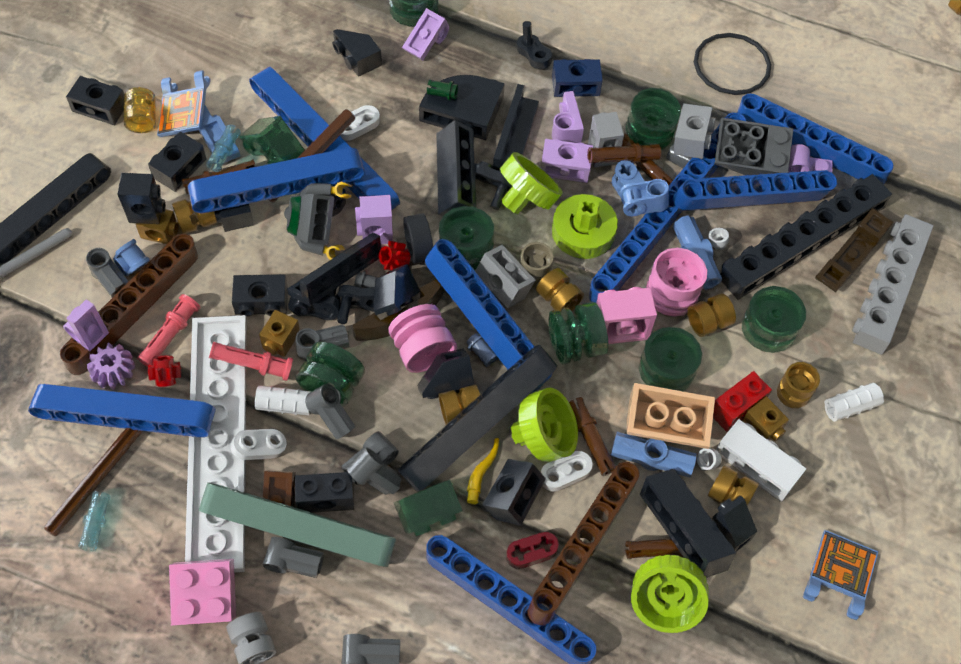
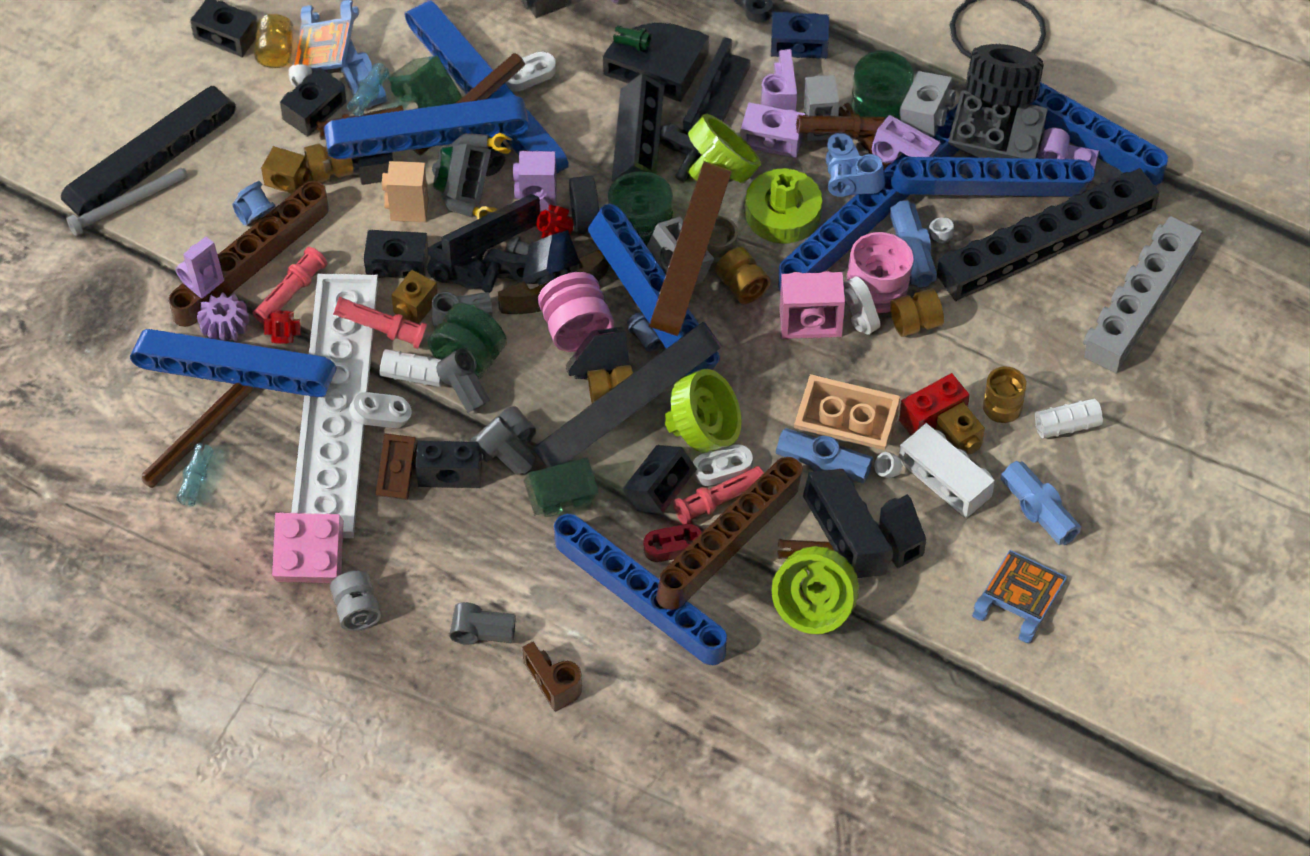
camera: 10 degrees right, 5 degrees down
(107, 273) = (225, 219): dark grey piece -> none
(141, 198) = (271, 137): black brick -> none
(163, 137) = (298, 73): none -> white hinge
(263, 237) = (406, 191): none -> light nougat brick
(286, 556) = (399, 525): dark grey piece -> none
(297, 524) = (416, 491): sand green beam -> none
(475, 479) = (619, 466): yellow animal -> none
(517, 277) = (690, 249): none -> reddish brown beam
(557, 505) = (707, 499): none -> coral pin
(578, 332) = (755, 318): clear green wheel -> none
(587, 426) = (753, 421): reddish brown pin -> none
(666, 310) = (861, 305): none -> white plate
(670, 359) = (859, 353): clear green wheel -> none
(678, 163) = (898, 137): none -> lavender plate
(731, 486) = (903, 483): pearl gold wheel -> none
(756, 102) = (1004, 74): none -> black tyre
(773, 319) = (988, 321): clear green wheel -> none
(845, 483) = (1040, 503): none -> medium blue piece
(854, 251) = (1105, 256): dark brown slope -> none

